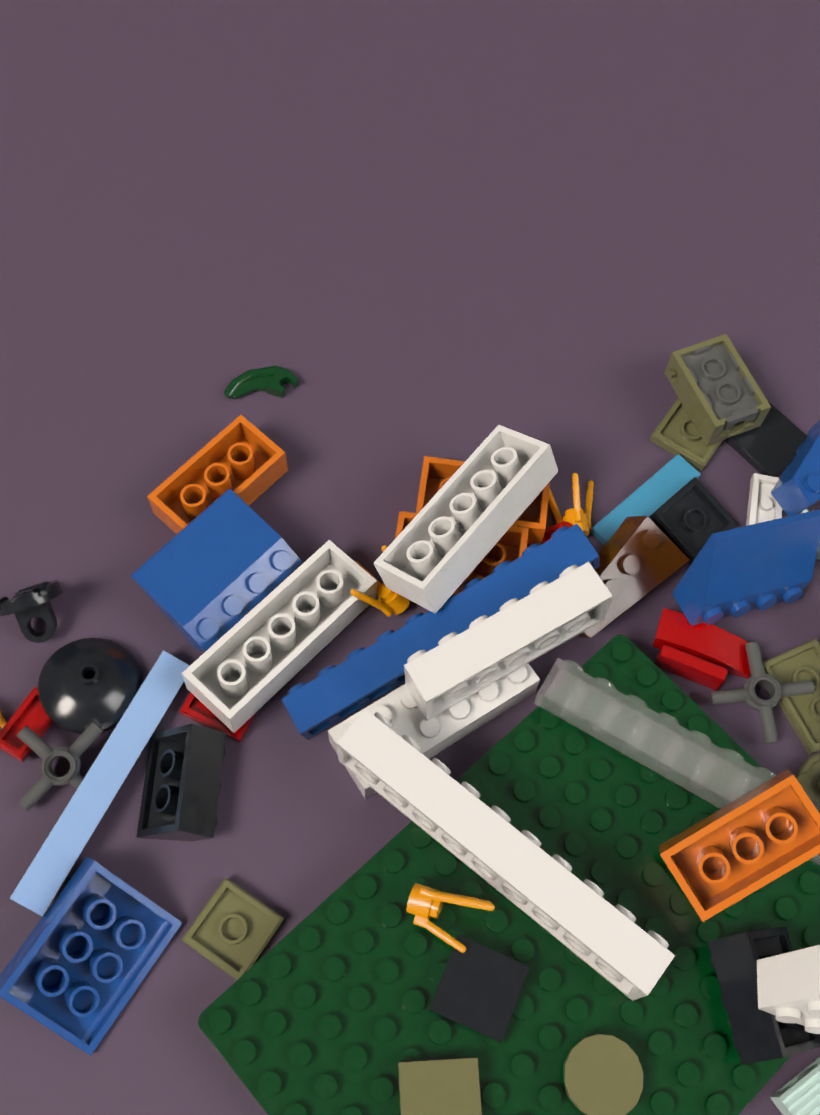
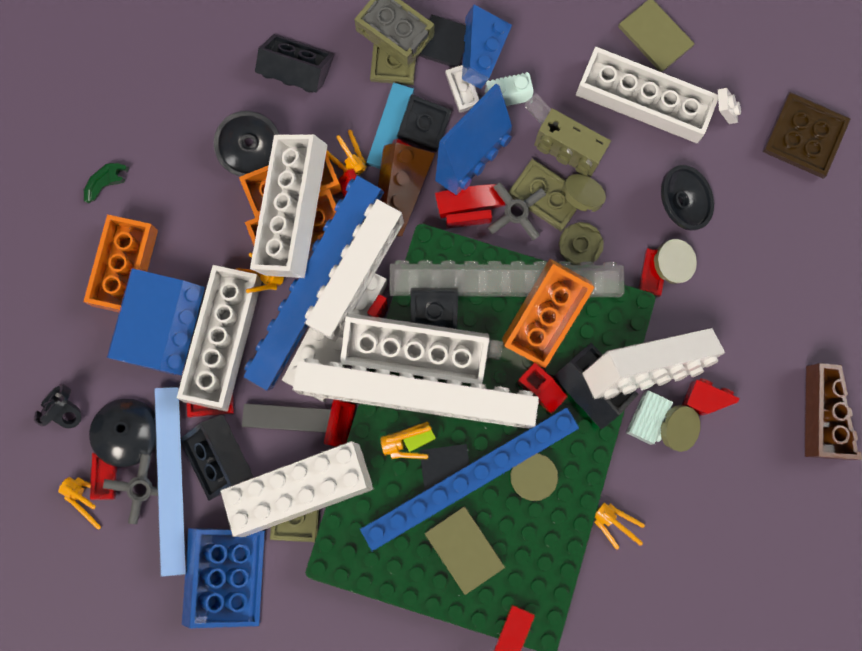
camera: 30 degrees left, 15 degrees up
(260, 888) = (296, 489): none -> white brick
(307, 790) = (285, 418): none -> dark grey tile
(368, 835) = (339, 423): none -> red tile
(445, 407) = (231, 146): none -> black dish
(465, 919) = (419, 440): none -> lime piece
(505, 714) = (378, 307): none -> red tile
(509, 1020) = (469, 479): none -> blue plate
(532, 788) = (414, 348): none -> white brick
(565, 370) = (293, 63): none -> black slope
(584, 753) = (435, 306): none -> black tile
(640, 854) = (494, 349): none -> clear piece
(686, 939) = (542, 386): none -> red slope

